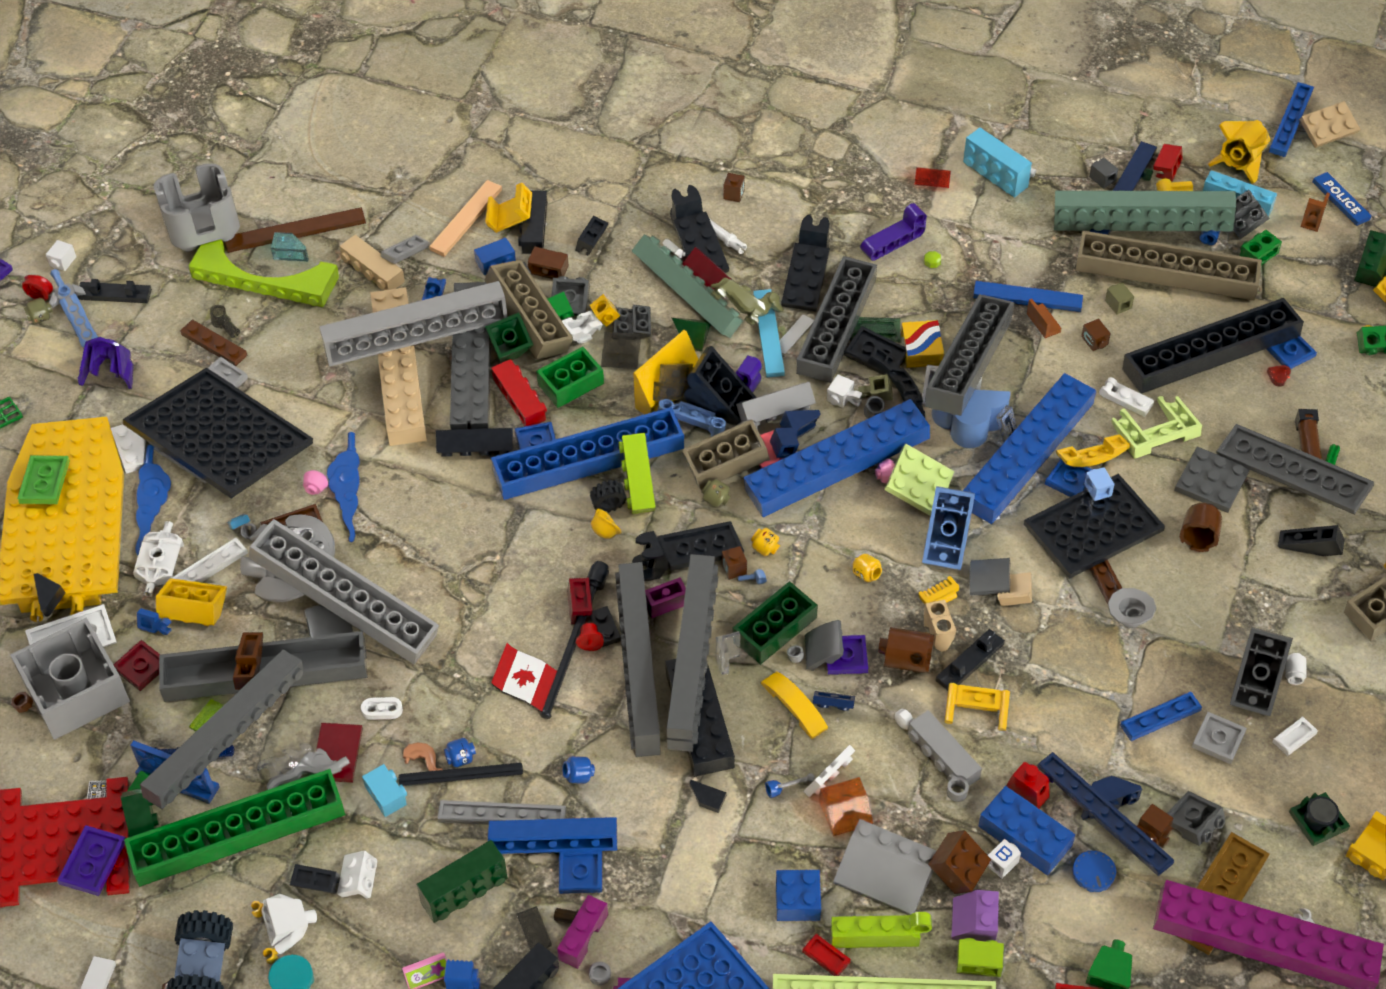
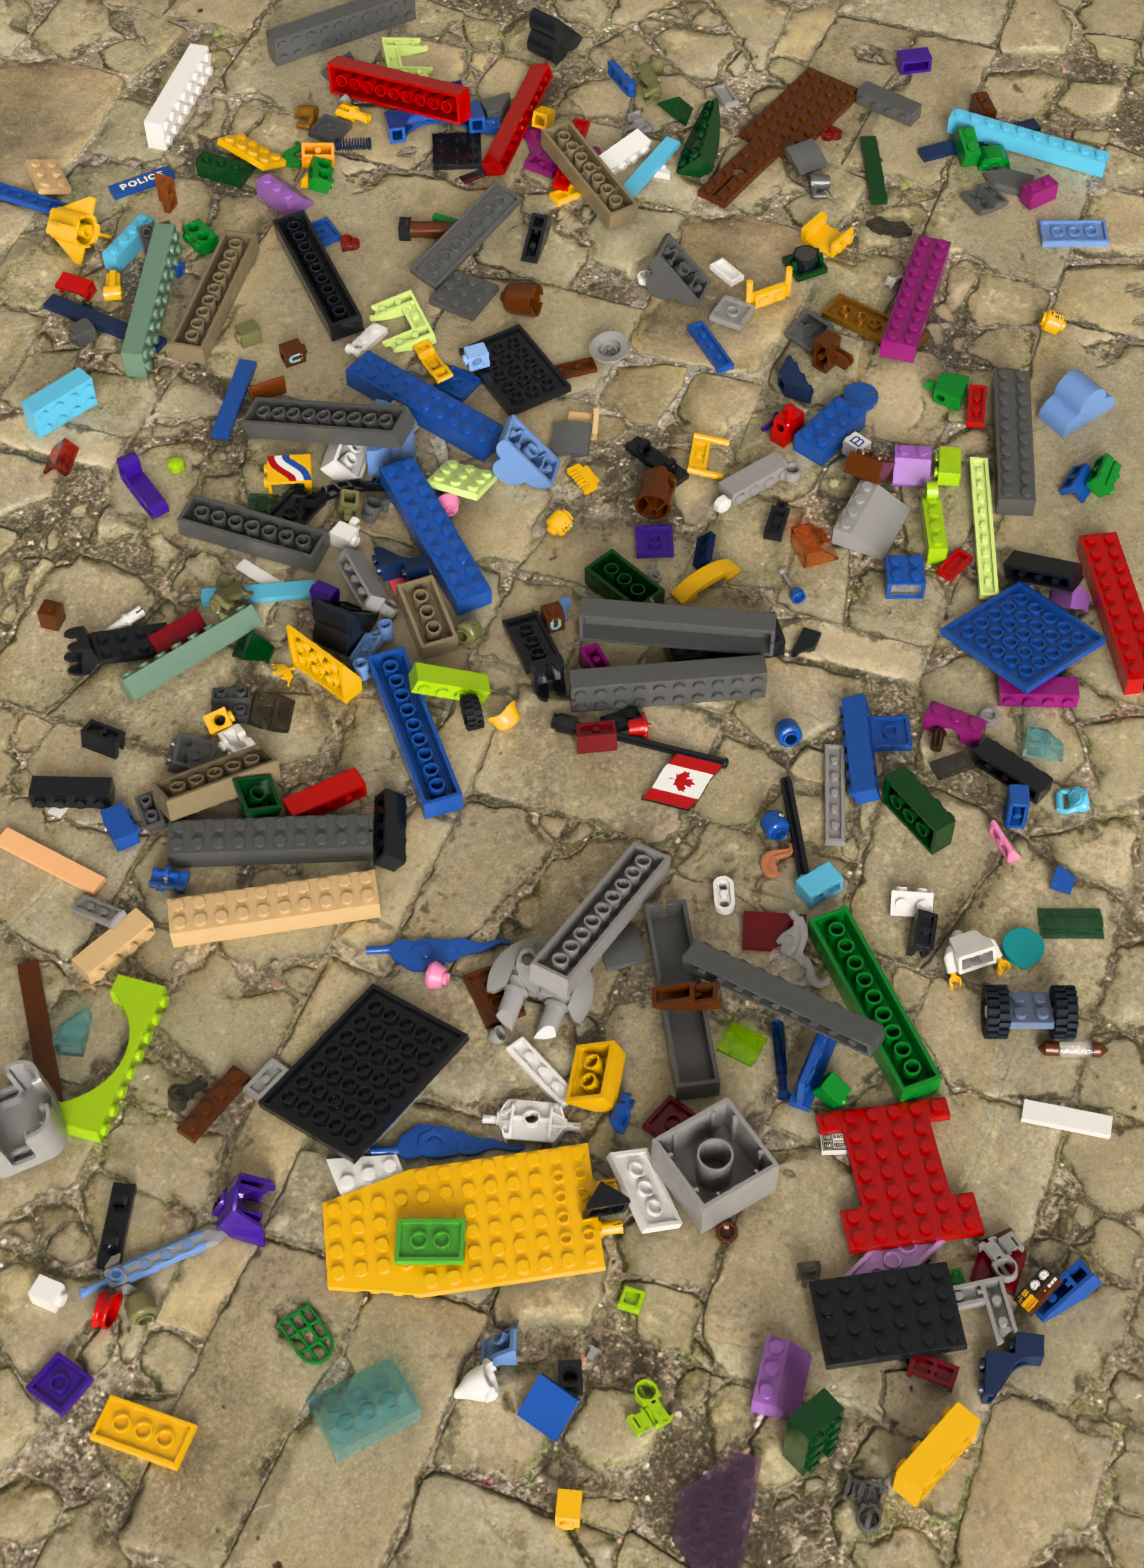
camera: 90 degrees left, 0 degrees up
(91, 860) = (925, 1122): dark purple plate -> none
(138, 813) = (865, 1087): dark green brick -> none
(238, 521) = (486, 1045): dark azure tile -> none
(413, 323) = (241, 873): light grey brick -> none
(509, 212) = (55, 810): yellow panel -> none
(534, 434) = (386, 776): blue tile -> none
(548, 263) = (138, 776): reddish brown brick -> none
(561, 306) = (211, 752): green brick -> none
(570, 377) = (310, 749): green brick -> none
(672, 381) = (338, 650): clear smoke slope -> none
(674, 248) = (146, 656): white tile -> none
(765, 541) = (527, 595): yellow head -> none
(807, 266) = (174, 554): black hinge -> none
(823, 644) = (649, 550): dark grey slope -> none
(830, 772) = (783, 552): white wing -> none
(883, 772) = (777, 521): none -> black hinge
(944, 638) = (625, 471): tan piece -> none
(1106, 814) = (817, 375): dark blue tile -> none
(1255, 778) = (770, 294): none -> yellow plate
(1343, 312) = (281, 194): none -> medium lavender slope

